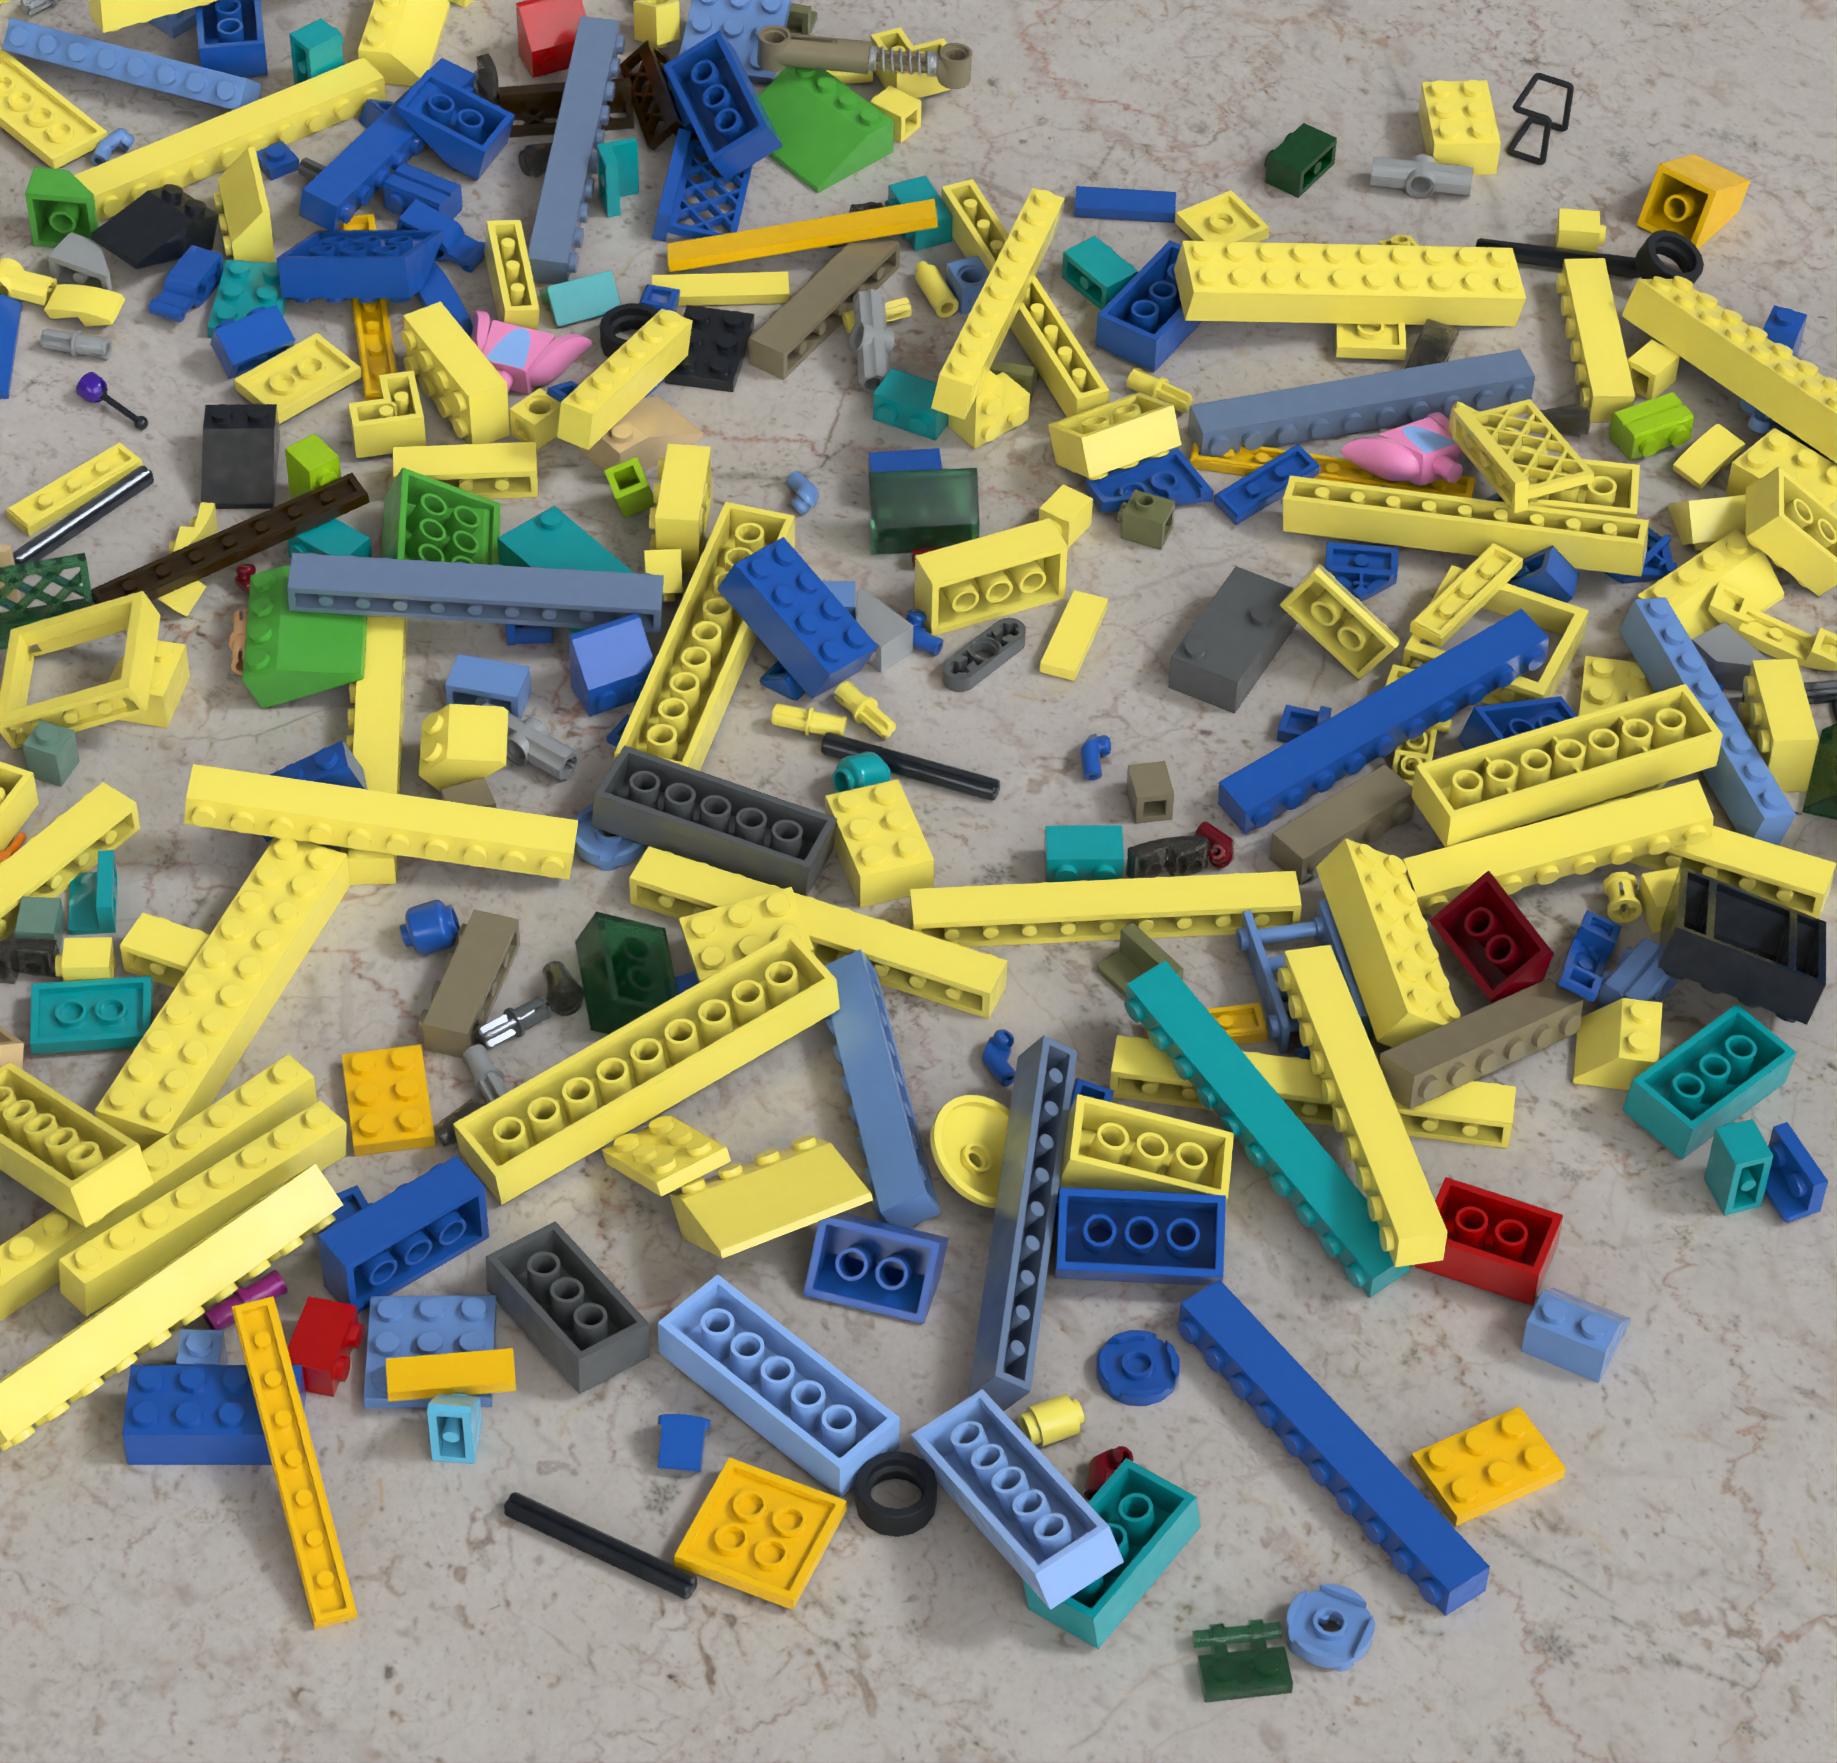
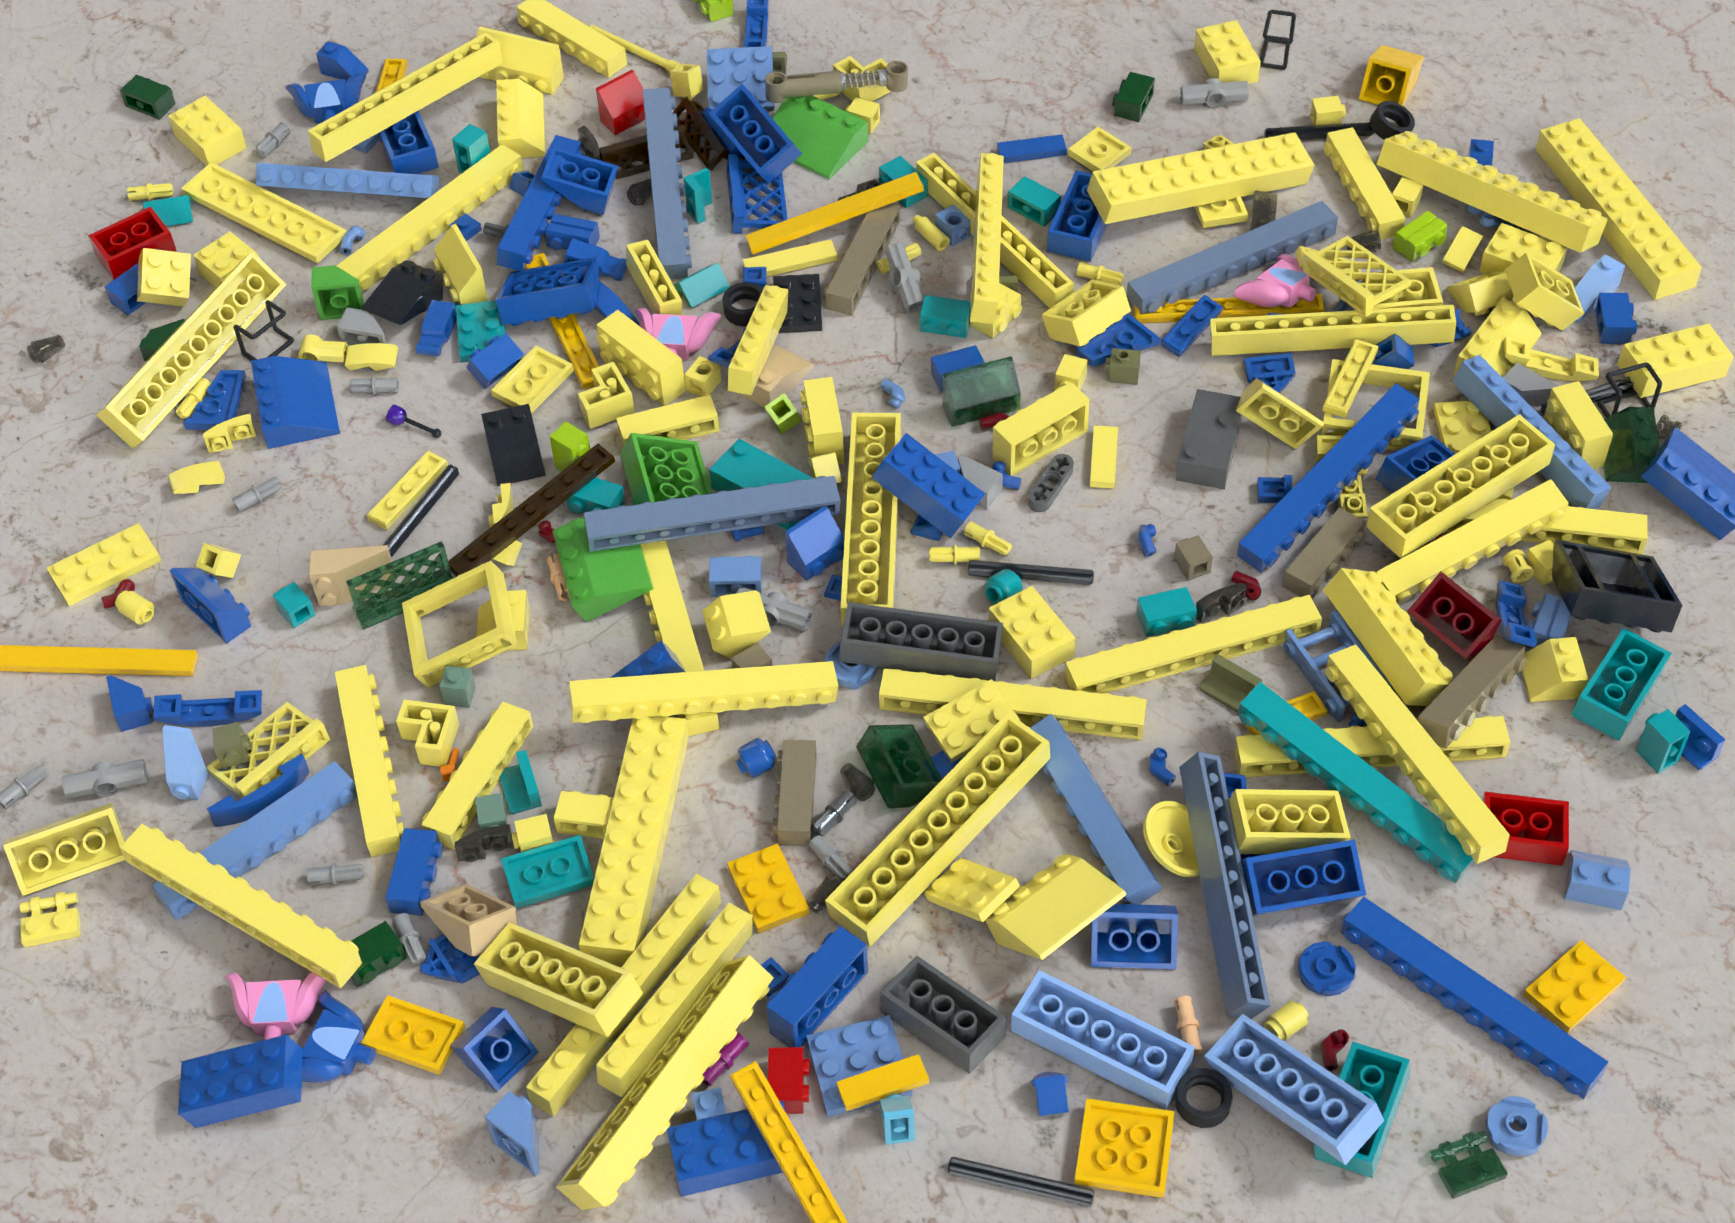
camera: 10 degrees left, 5 degrees up
(909, 1395) = (1187, 1024): none -> light nougat pin

